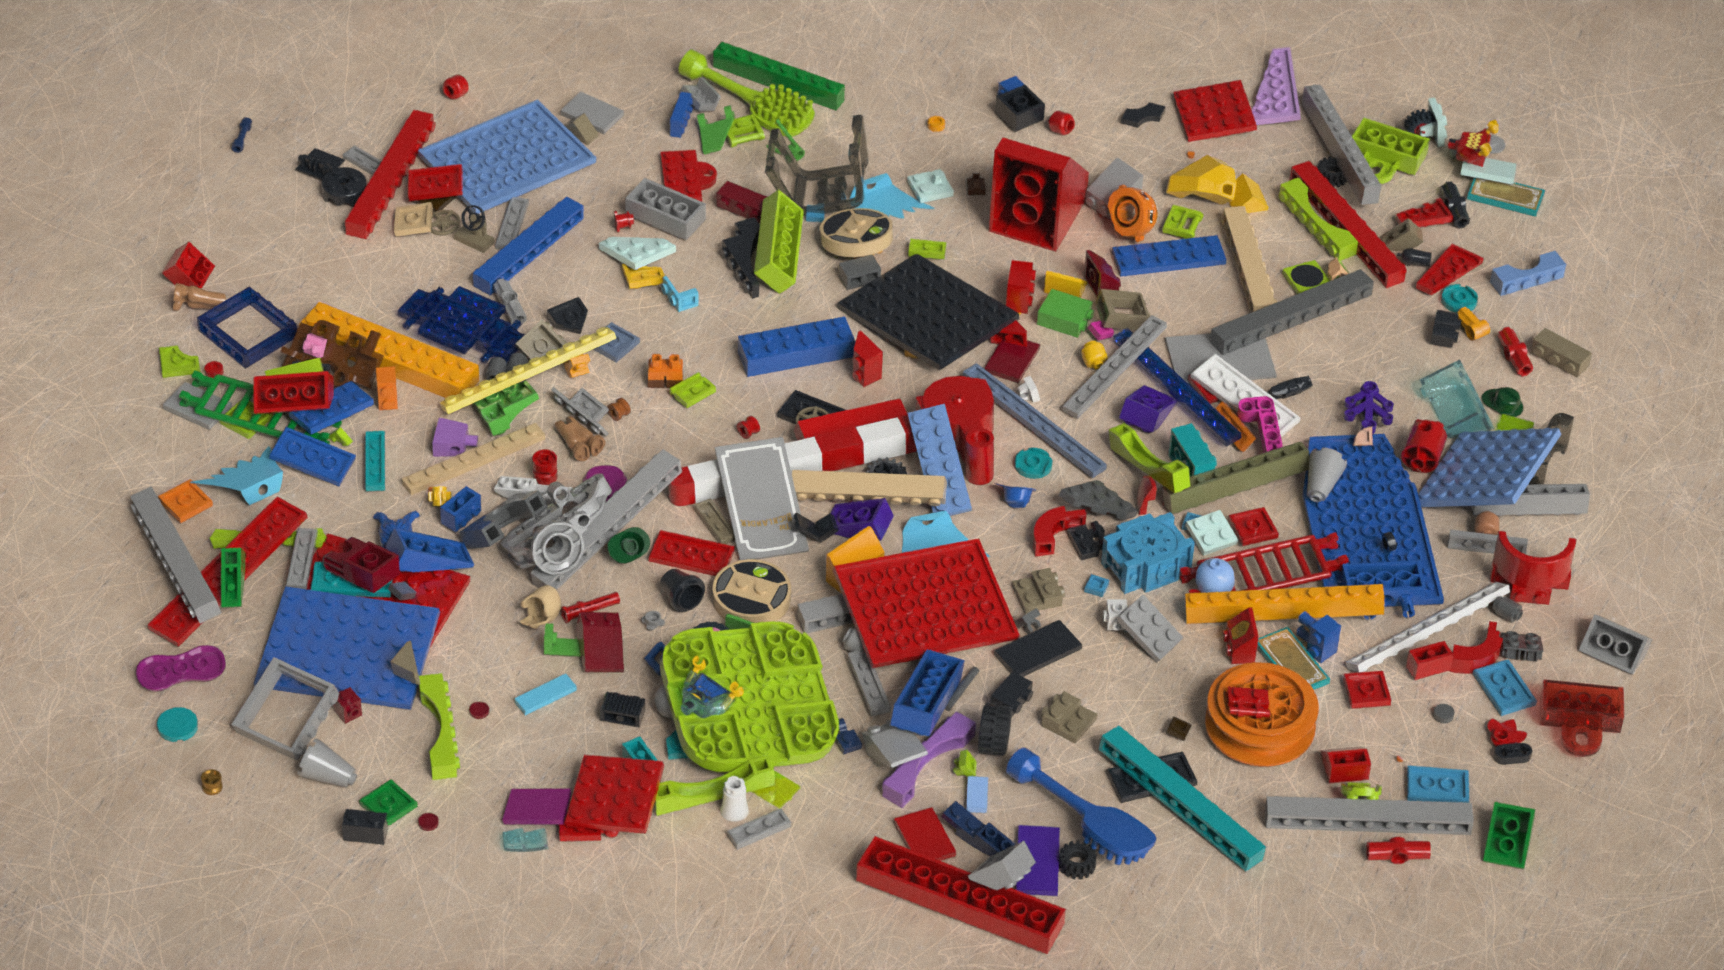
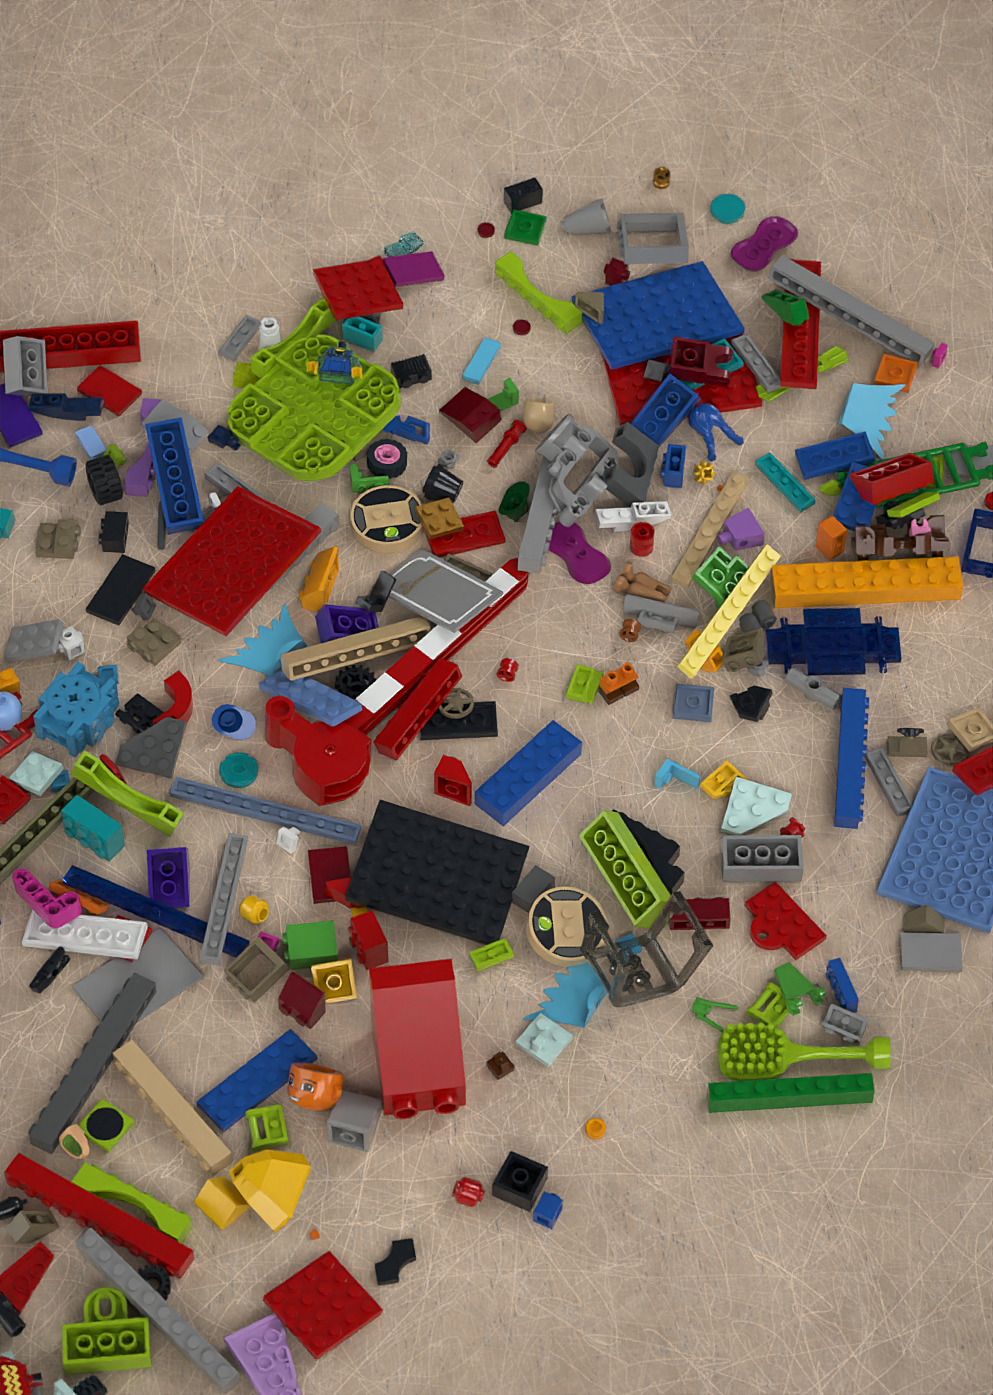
camera: 150 degrees right, 10 degrees up
(128, 491) = (939, 355): none -> dark pink plate
(709, 561) = (439, 518): none -> pearl gold plate
(900, 675) = (214, 501): none -> white tile

